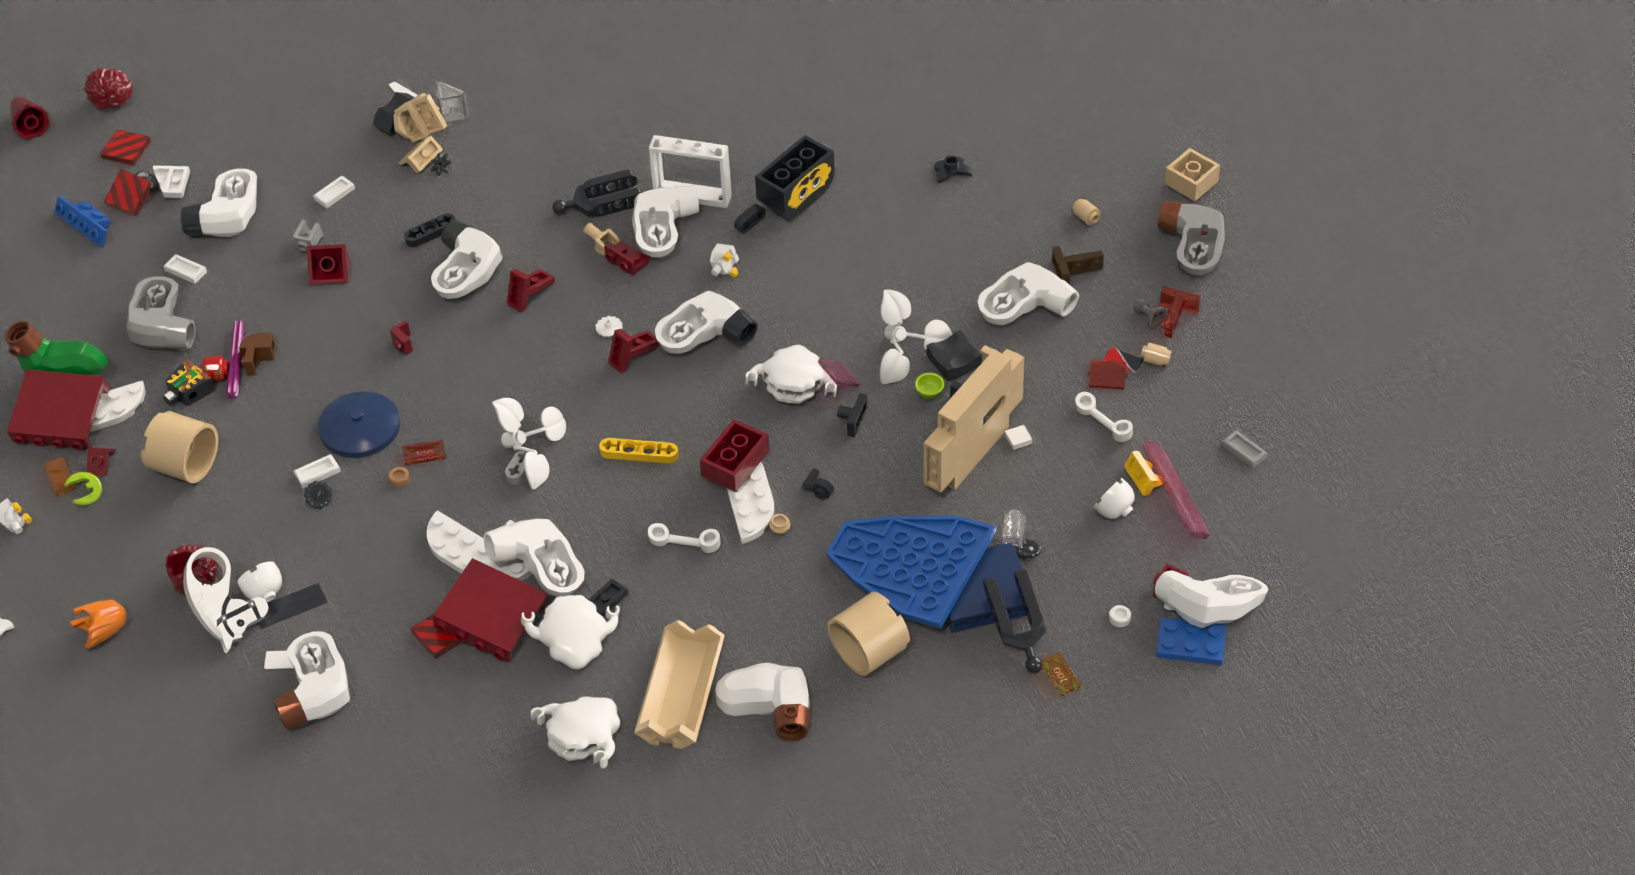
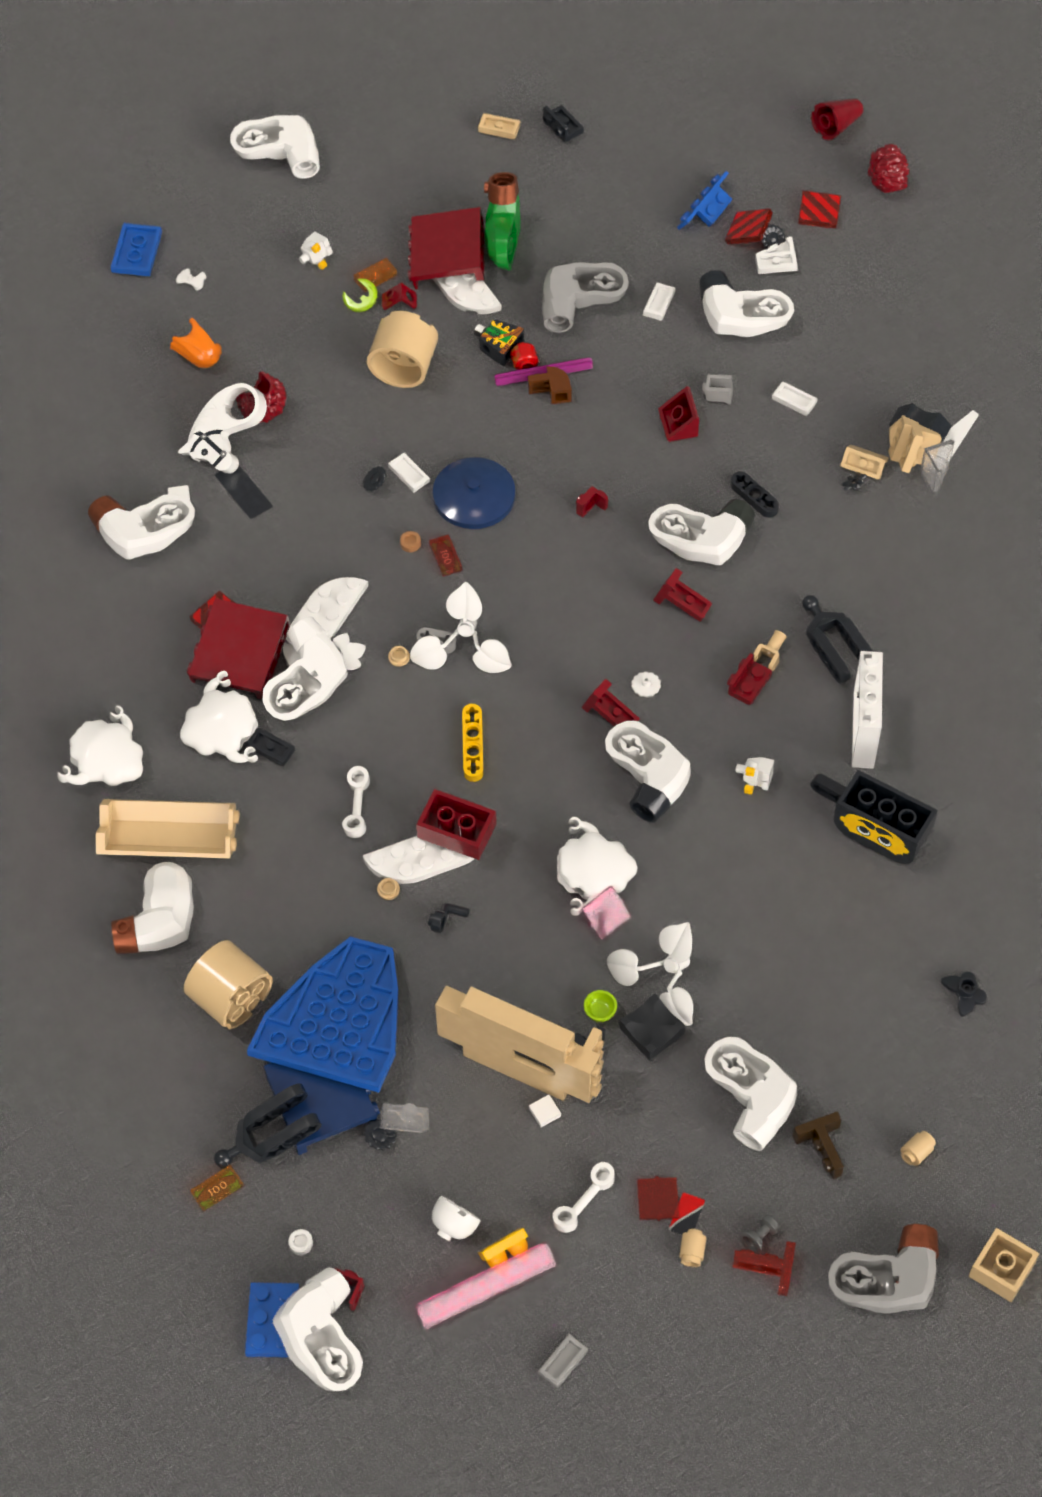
camera: 80 degrees right, 10 degrees up
(262, 582) = (254, 458): white cylinder -> none
(529, 495) = (399, 656): none -> tan plate
(655, 217) = (799, 694): white piece -> none
(854, 415) = (548, 937): black tile -> none

